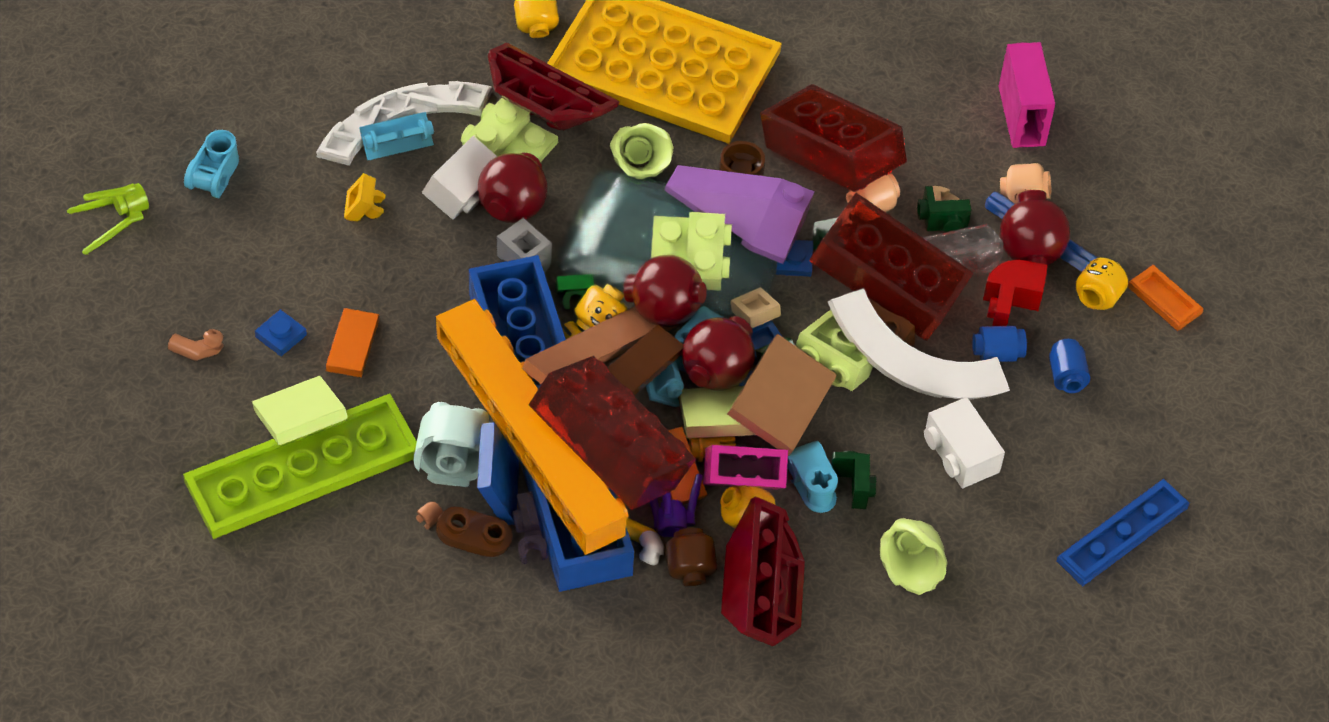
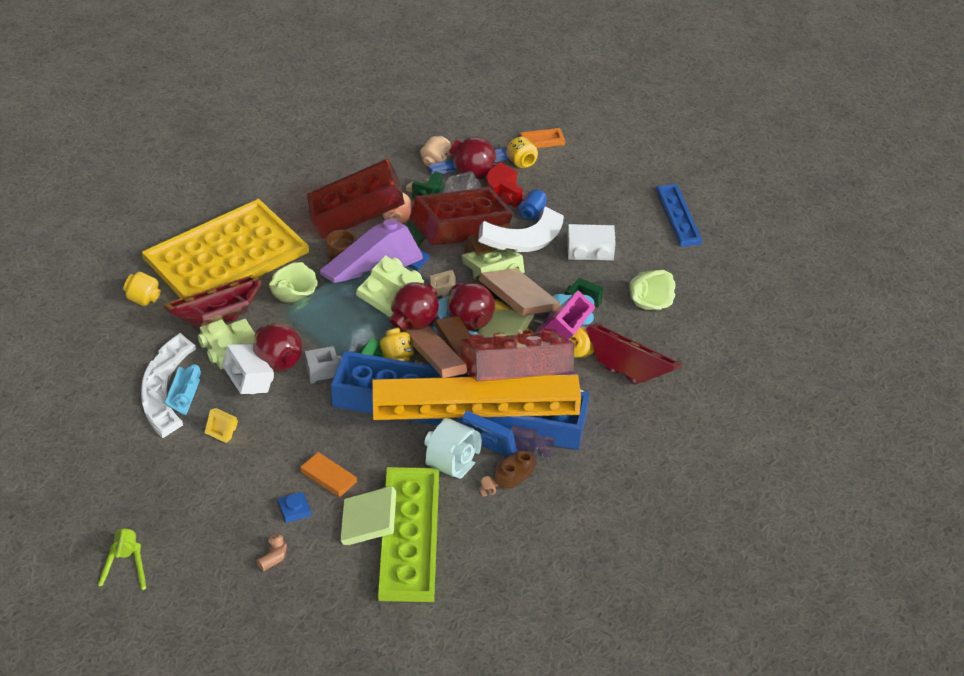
camera: 60 degrees left, 10 degrees down
(213, 163) = (132, 486): medium azure piece -> none
(691, 556) = (595, 379): reddish brown head -> none
(1026, 94) = (380, 121): dark pink brick -> none
(1069, 366) = (564, 187): blue brick -> none

